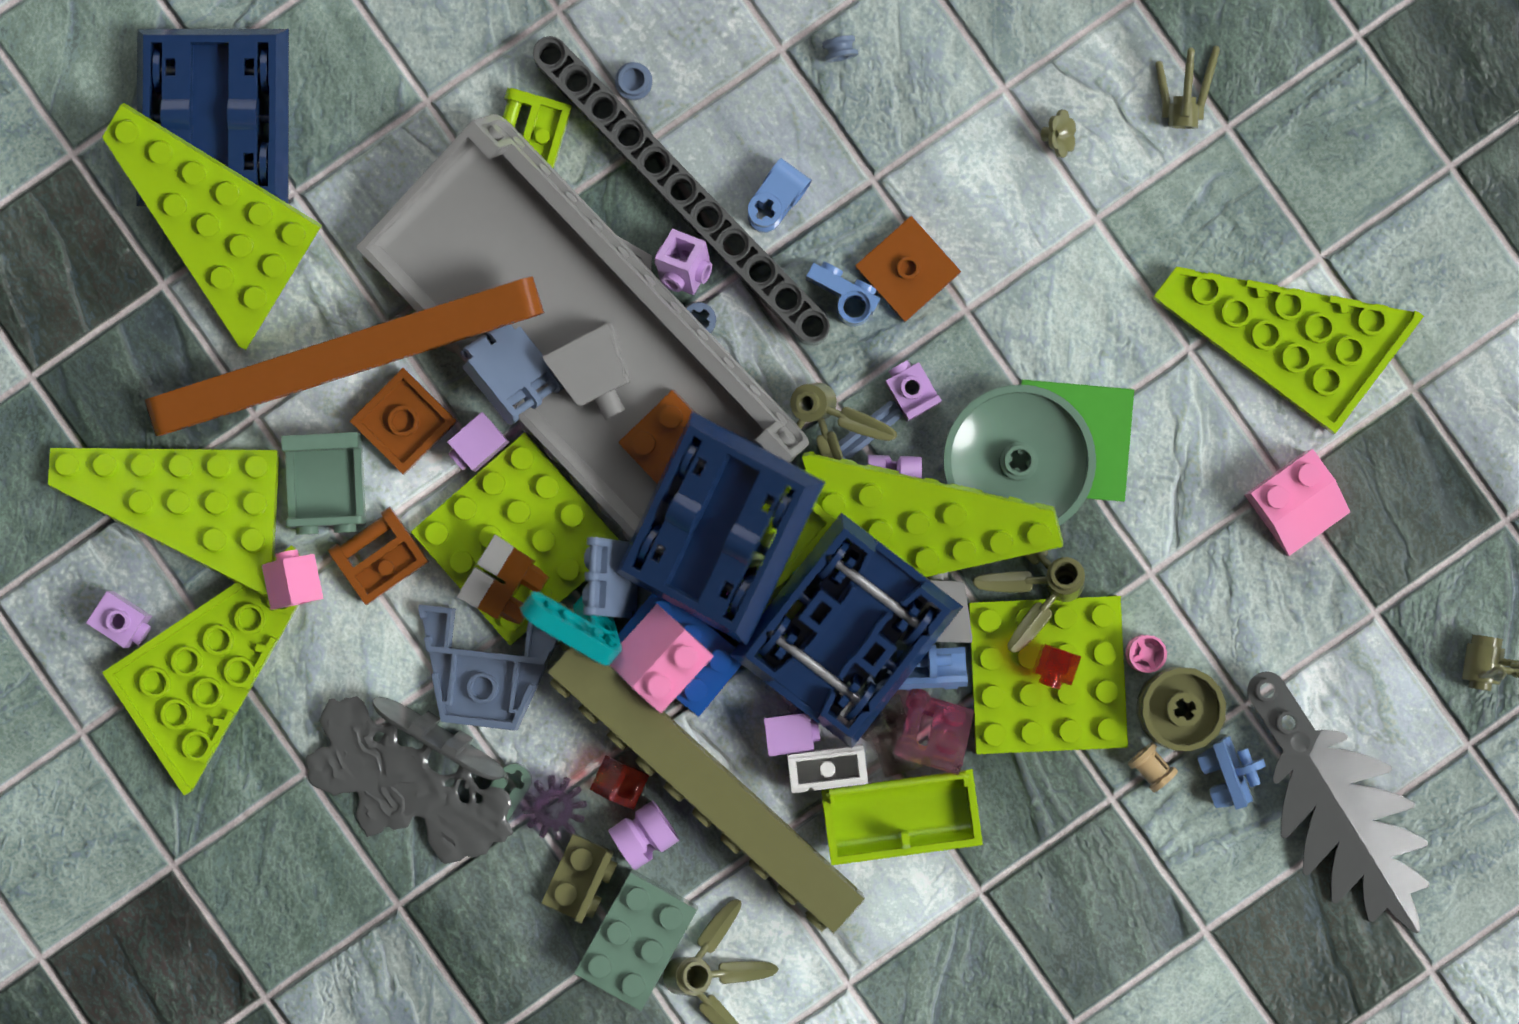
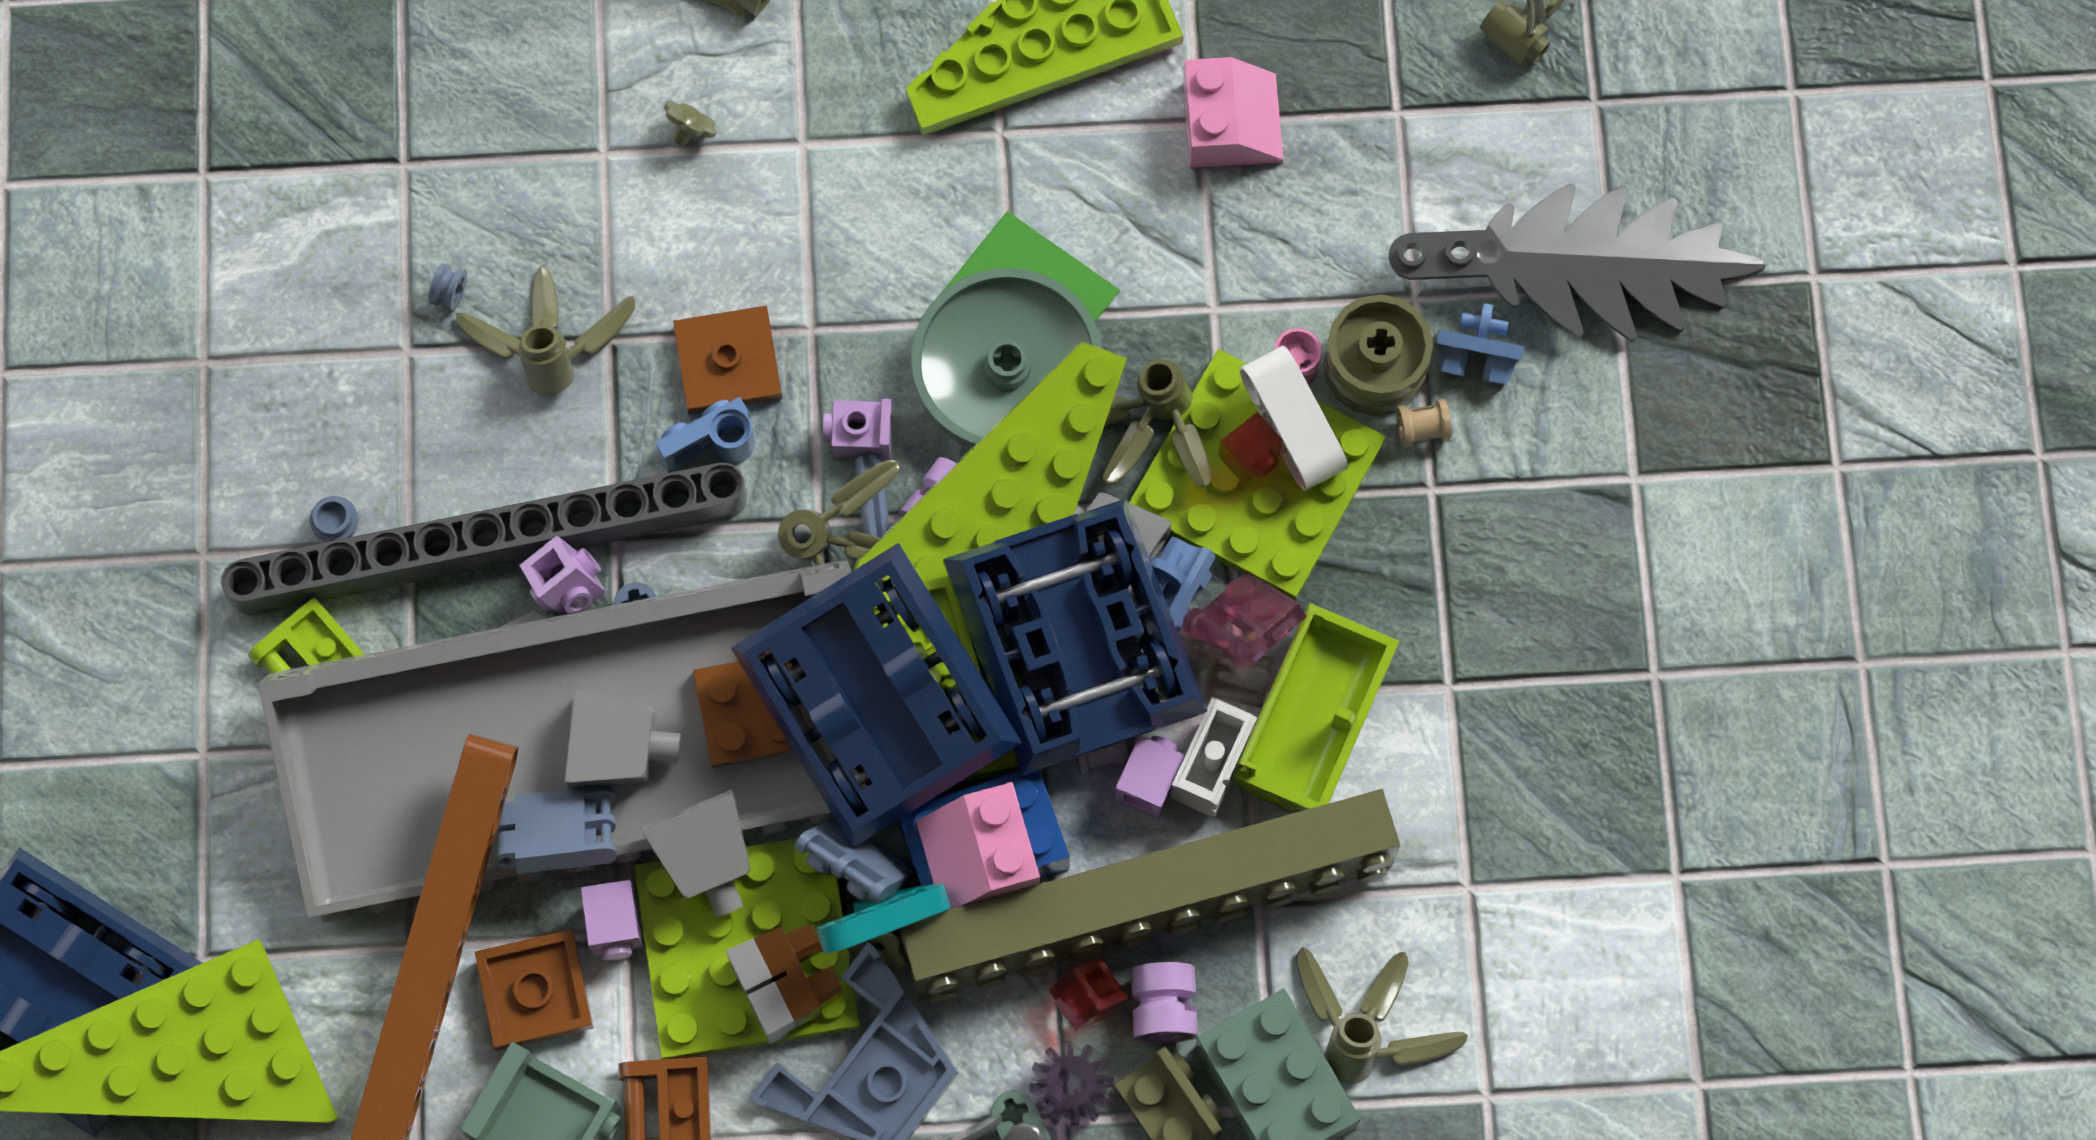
camera: 60 degrees left, 15 degrees down
(554, 475) = (703, 850): none -> light grey torso
(781, 192) = (557, 442): medium blue piece -> none
(831, 143) = (541, 347): none -> olive plant
(1095, 681) = (1294, 414): none -> white beam

